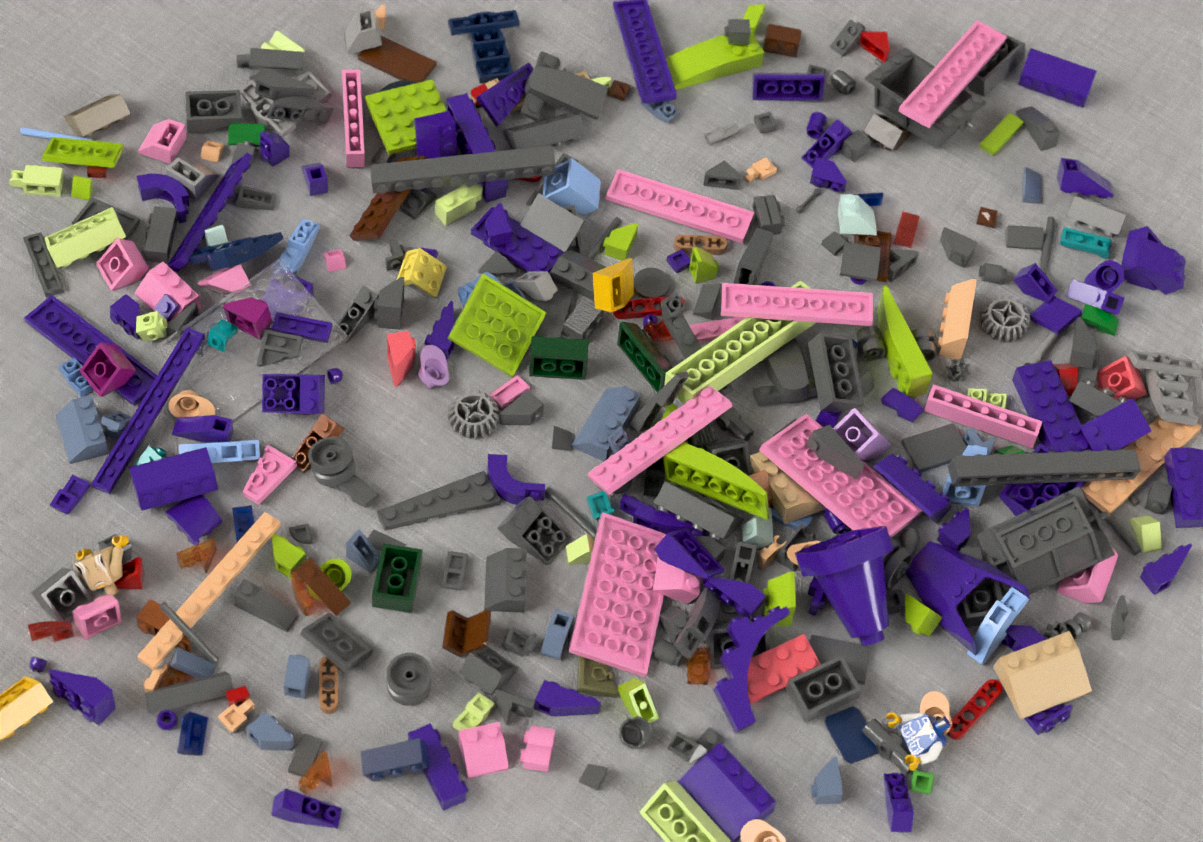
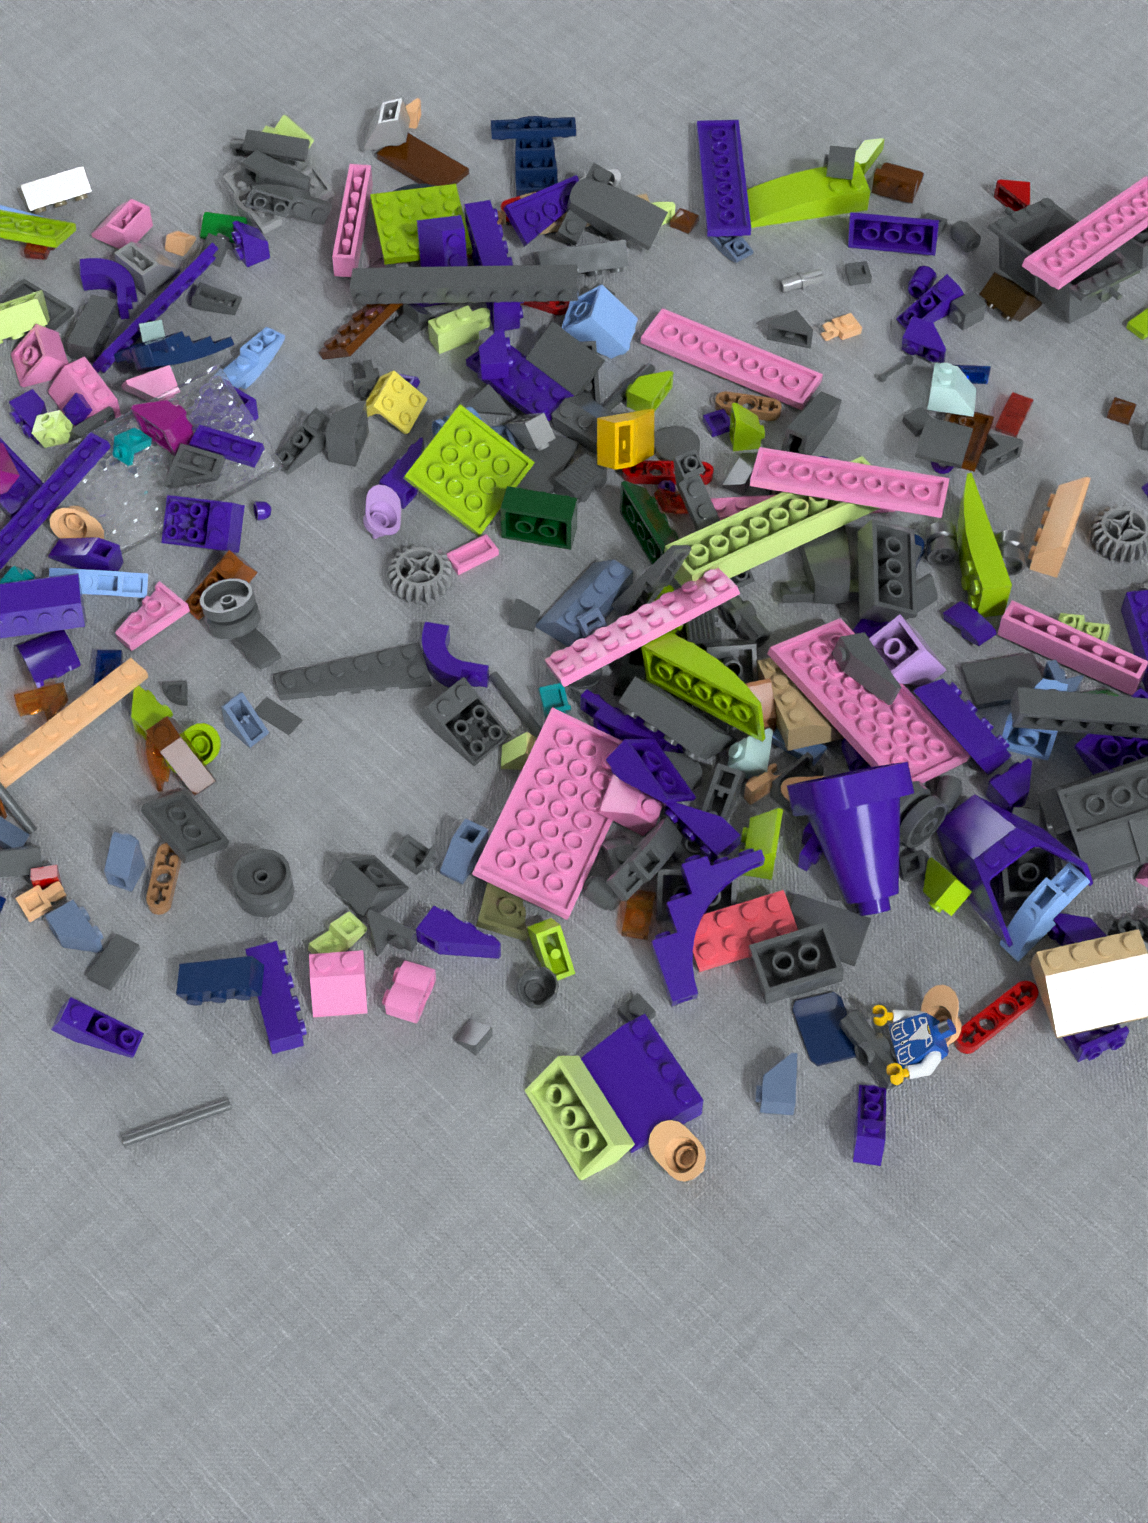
camera: 15 degrees right, 0 degrees up
(82, 187) = (15, 267): lime slope -> none
(212, 109) = (186, 195): dark grey slope -> none
(263, 605) = (106, 771): dark grey slope -> none
(315, 178) = (292, 285): dark purple slope -> none
(318, 771) = (124, 981): clear orange slope -> none
(334, 260) = (294, 379): bright pink slope -> none
(397, 578) = (278, 757): dark green brick -> none
(400, 355) = (345, 494): coral slope -> none
(454, 570) = (355, 758): dark grey slope -> none
(466, 634) = (346, 835): reddish brown bracket -> none
(506, 580) = (416, 778): dark grey slope -> none
(522, 411) = (482, 576): dark grey slope -> none
(686, 748) = (600, 1015): dark grey slope -> none
(767, 214) = (839, 378): dark grey brick -> none
(847, 37) = (979, 185): dark grey bracket -> none
(921, 781) = (908, 1101): bright green slope -> none
(957, 247) = (1076, 441): dark grey slope -> none
(958, 370) = (1050, 588): dark grey gear -> none
(992, 273) = (1116, 477): dark grey brick -> none

